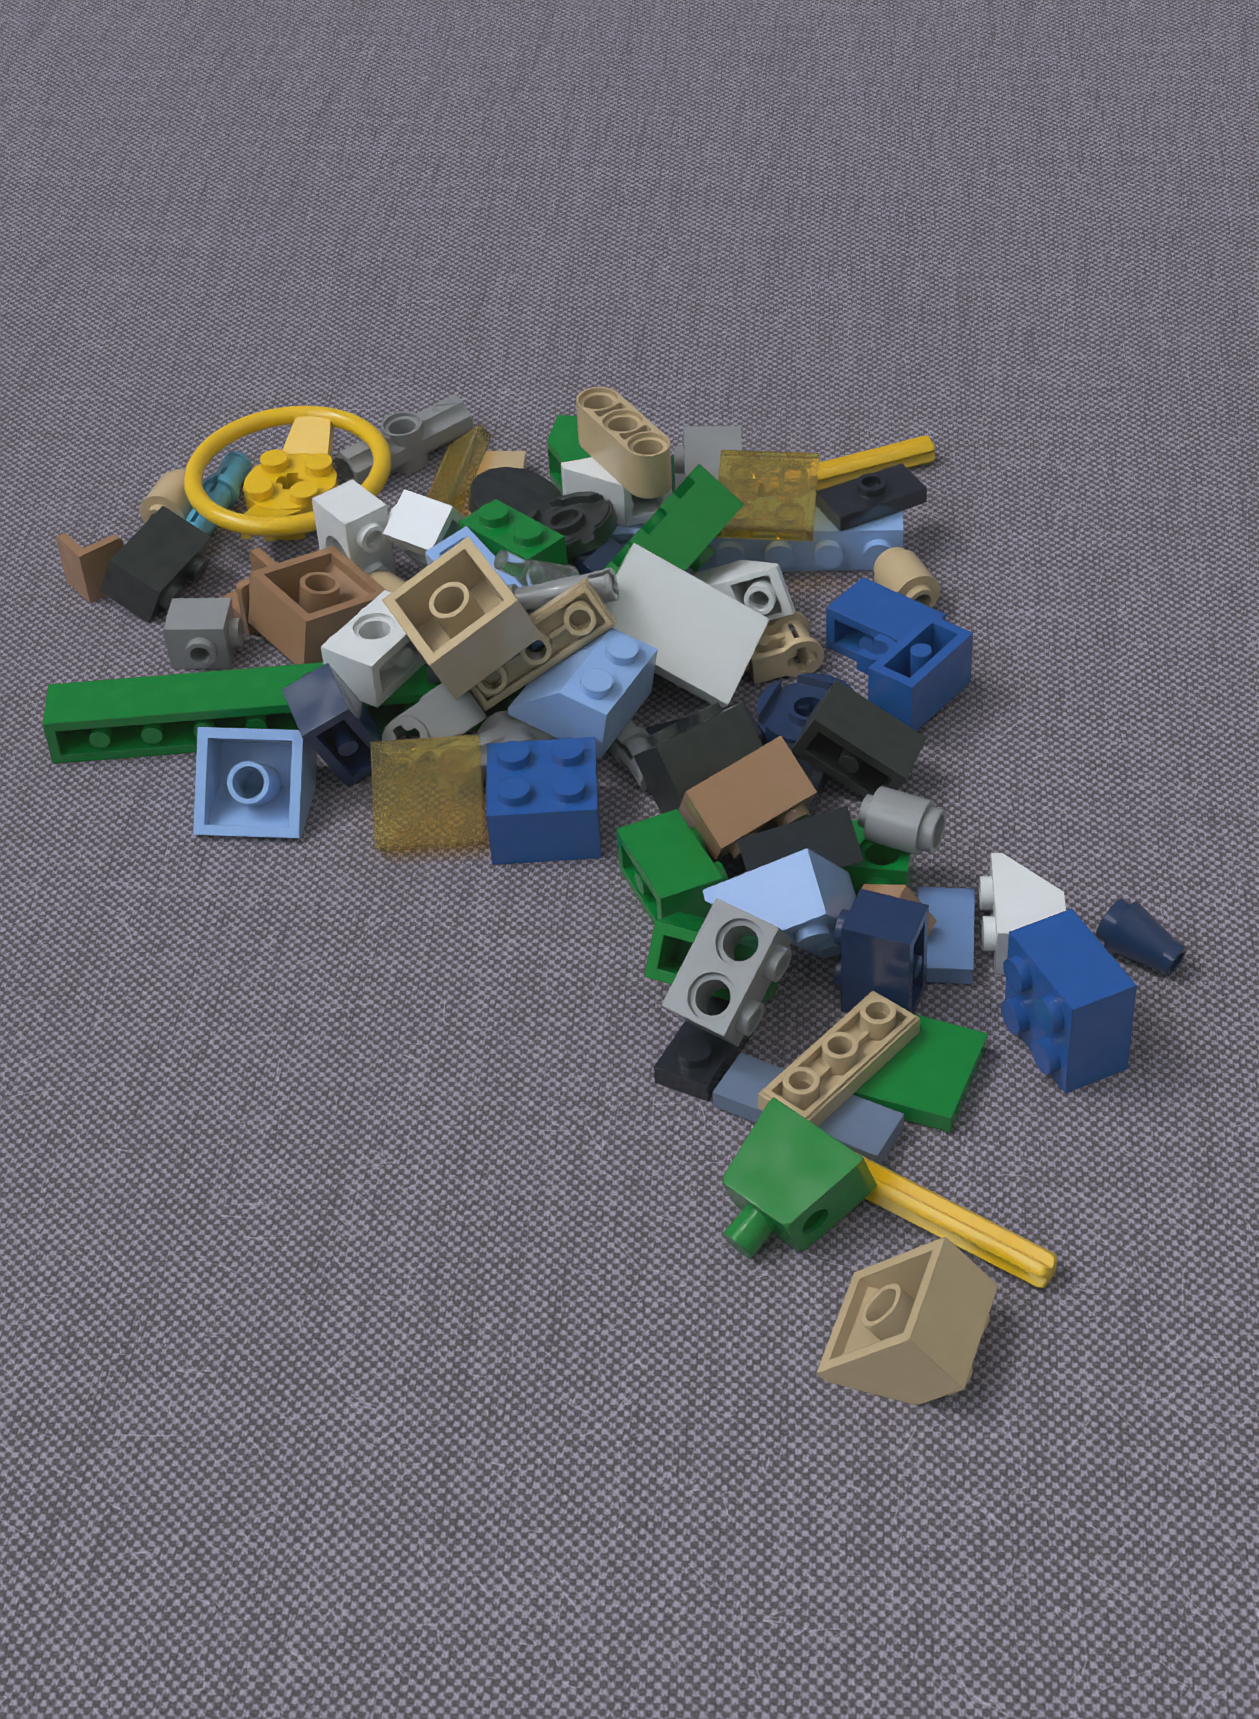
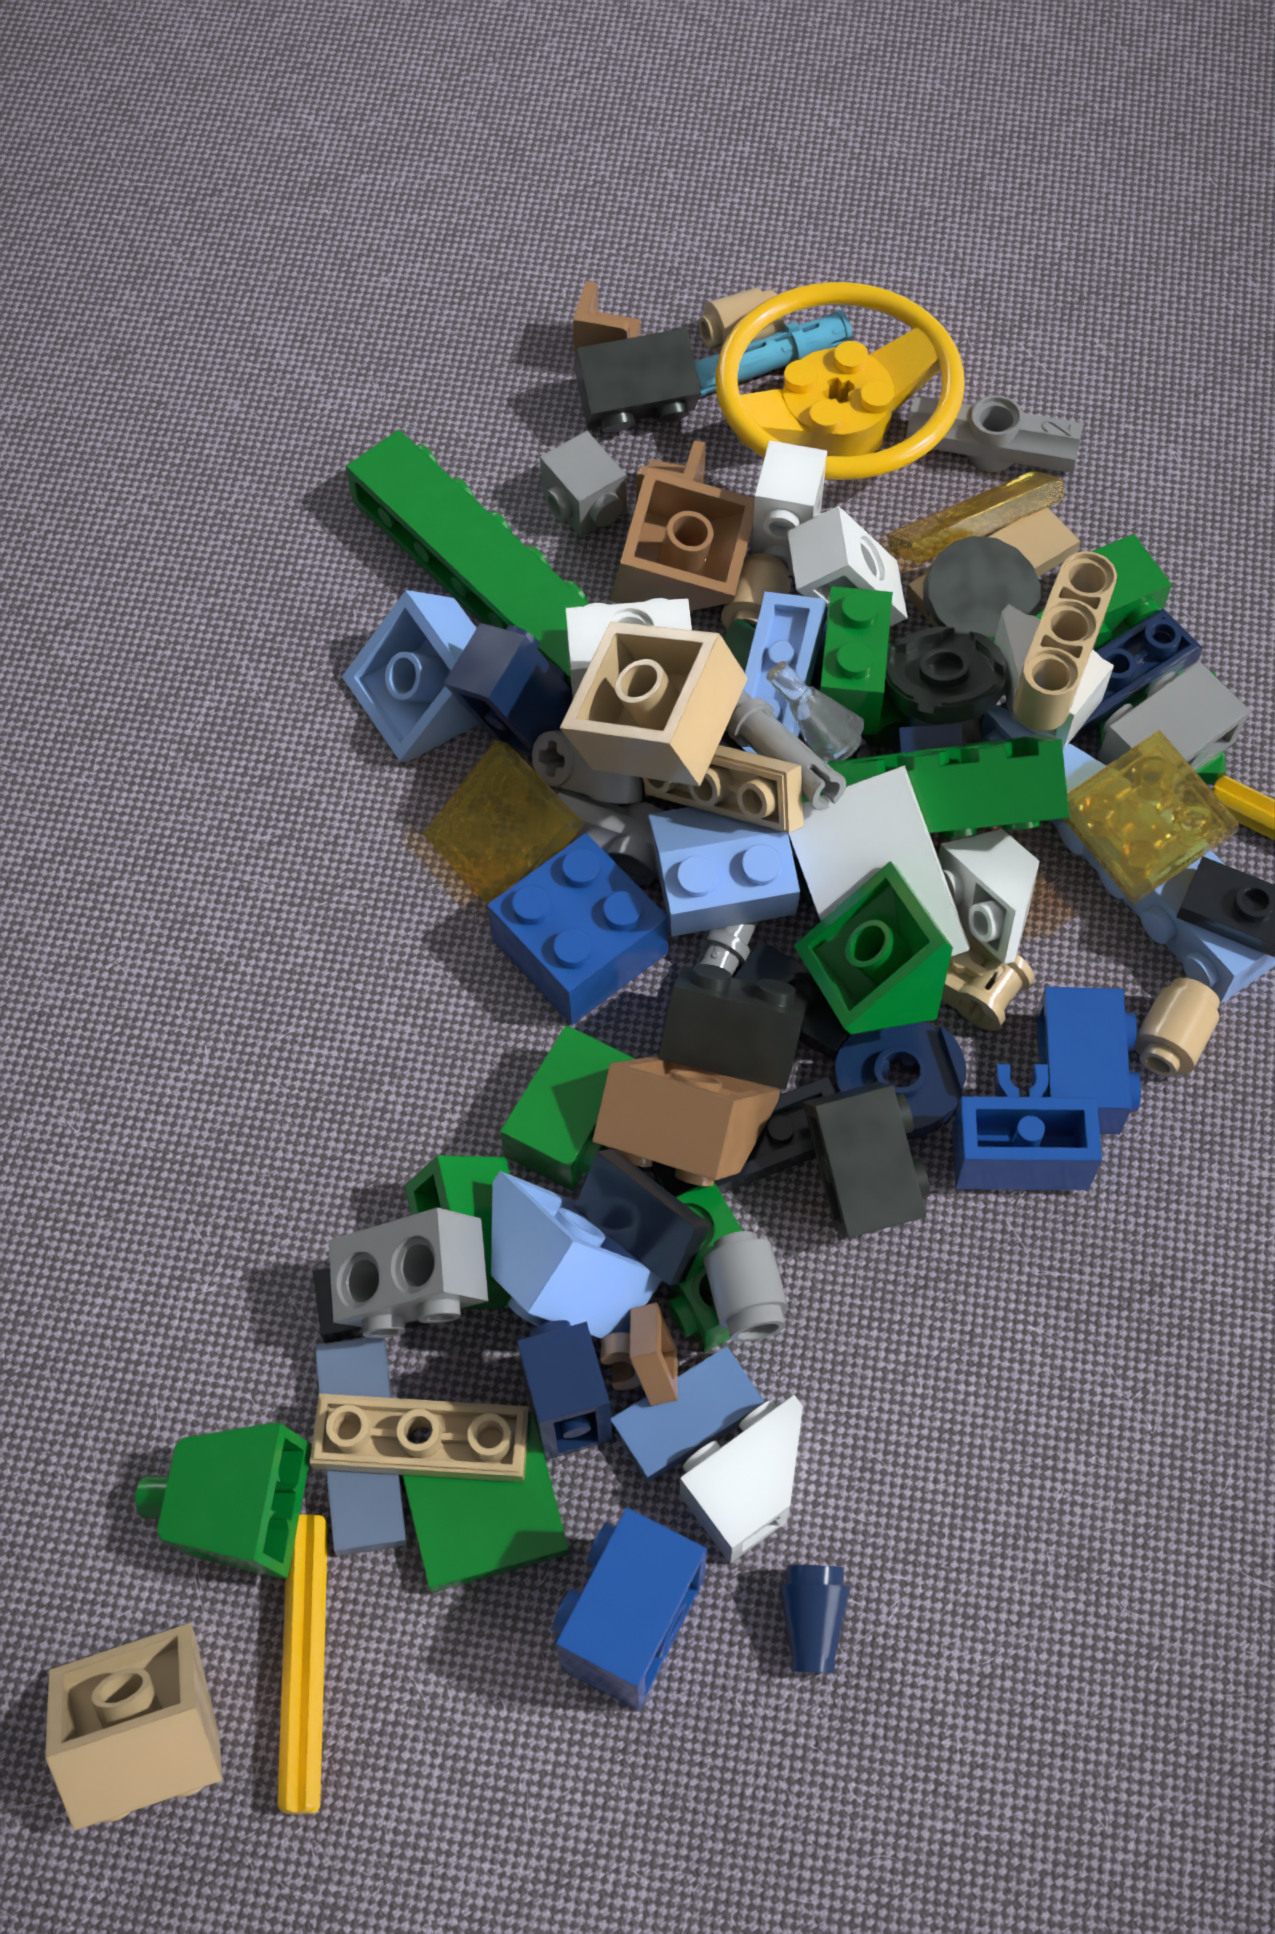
camera: 50 degrees right, 20 degrees up
(734, 648) = (879, 956): none -> green slope

